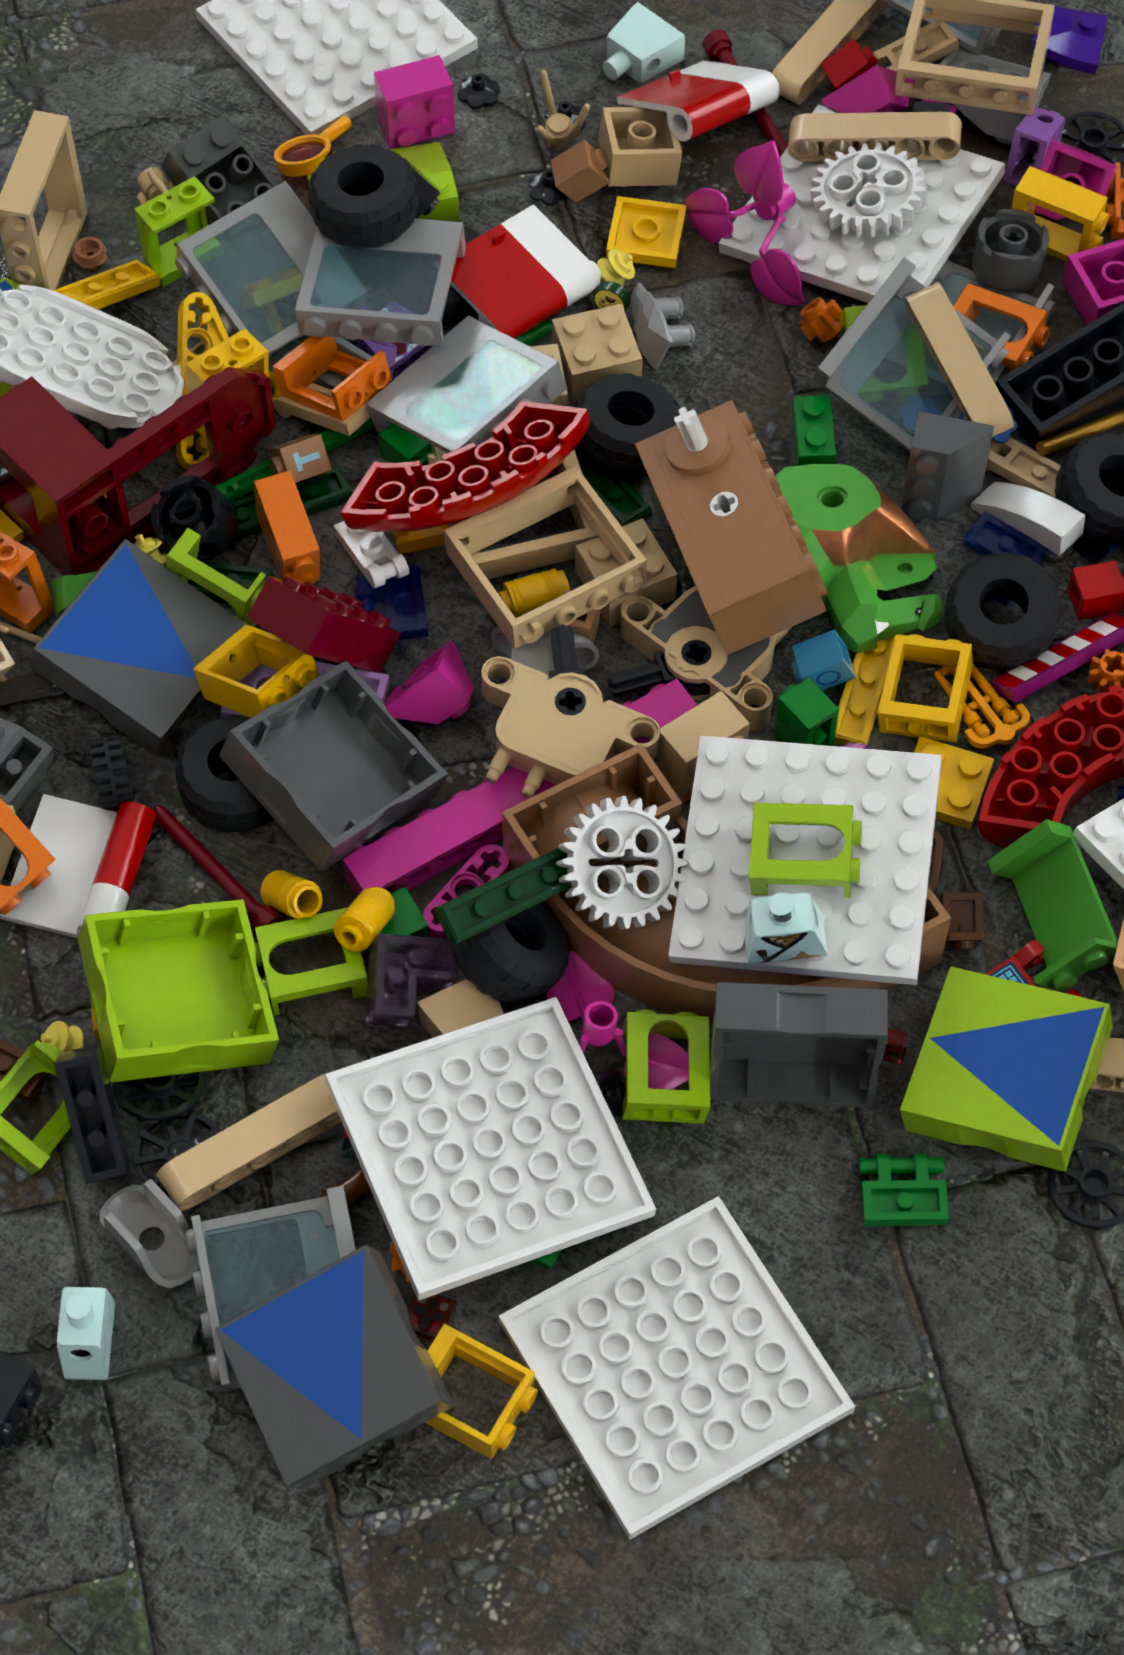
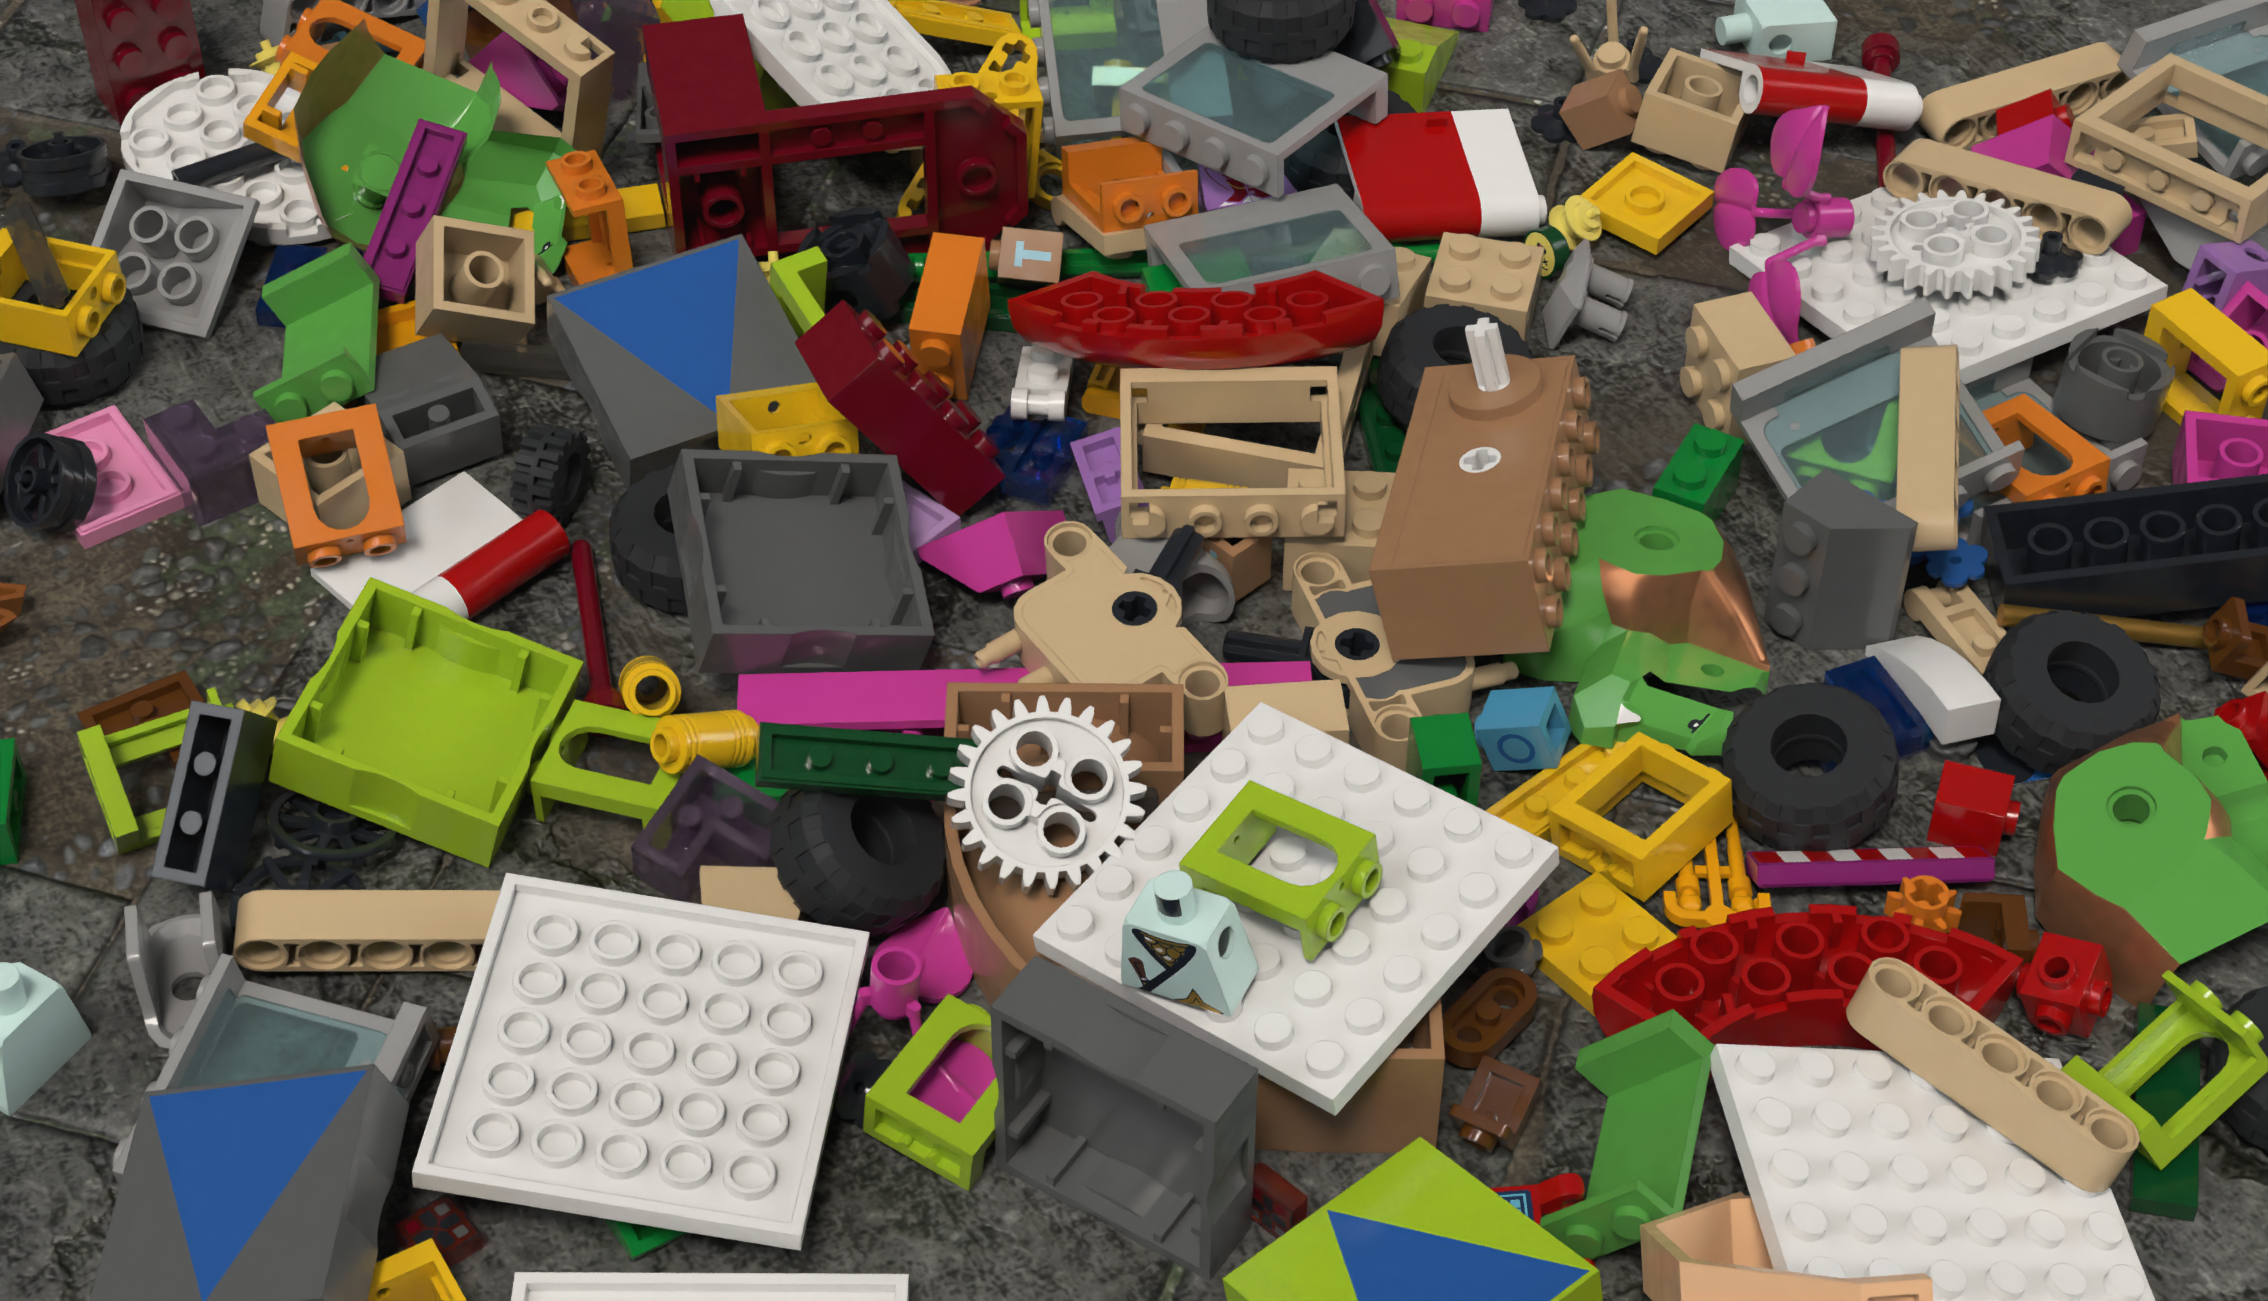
camera: 30 degrees right, 15 degrees down
(459, 599) = (1100, 470): none -> medium lavender hinge
(790, 340) = (1724, 345): none -> tan brick
(934, 172) = (2056, 258): none -> black plant

